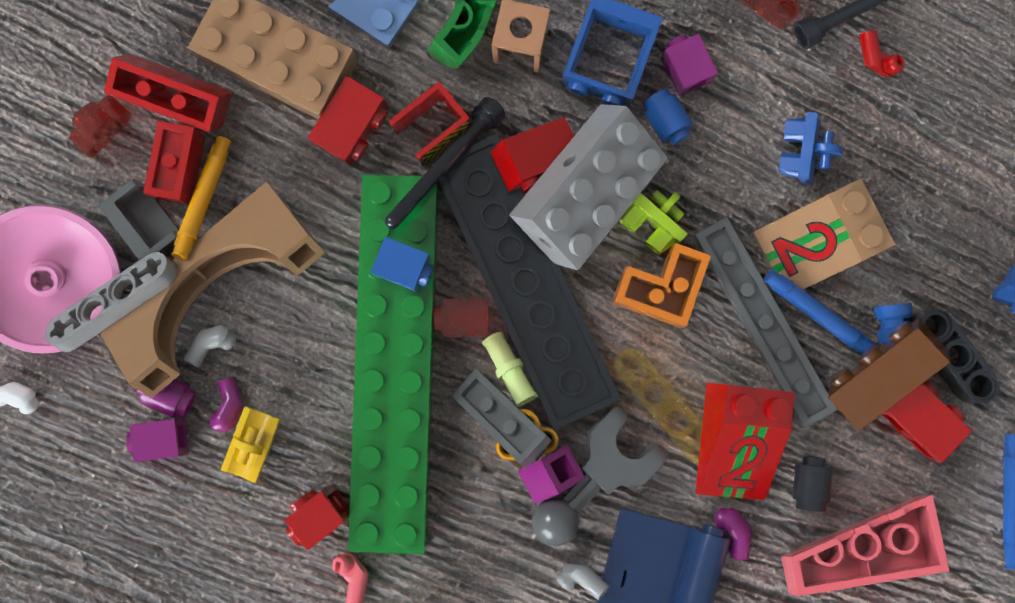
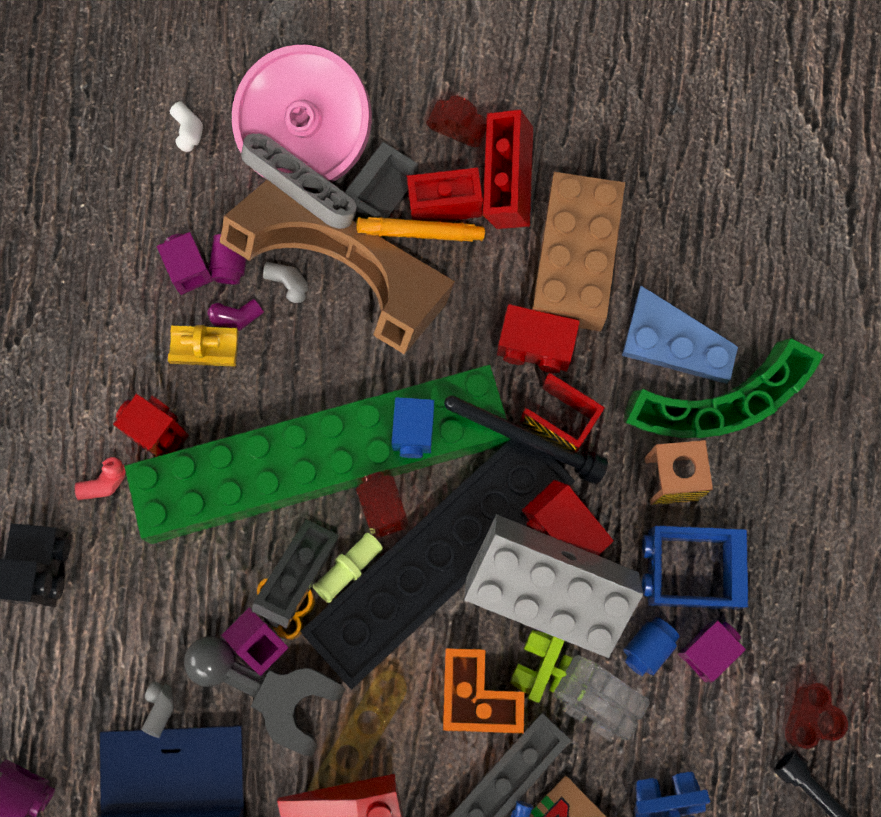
camera: 70 degrees right, 10 degrees down
(700, 176) = (602, 698): none -> clear brick

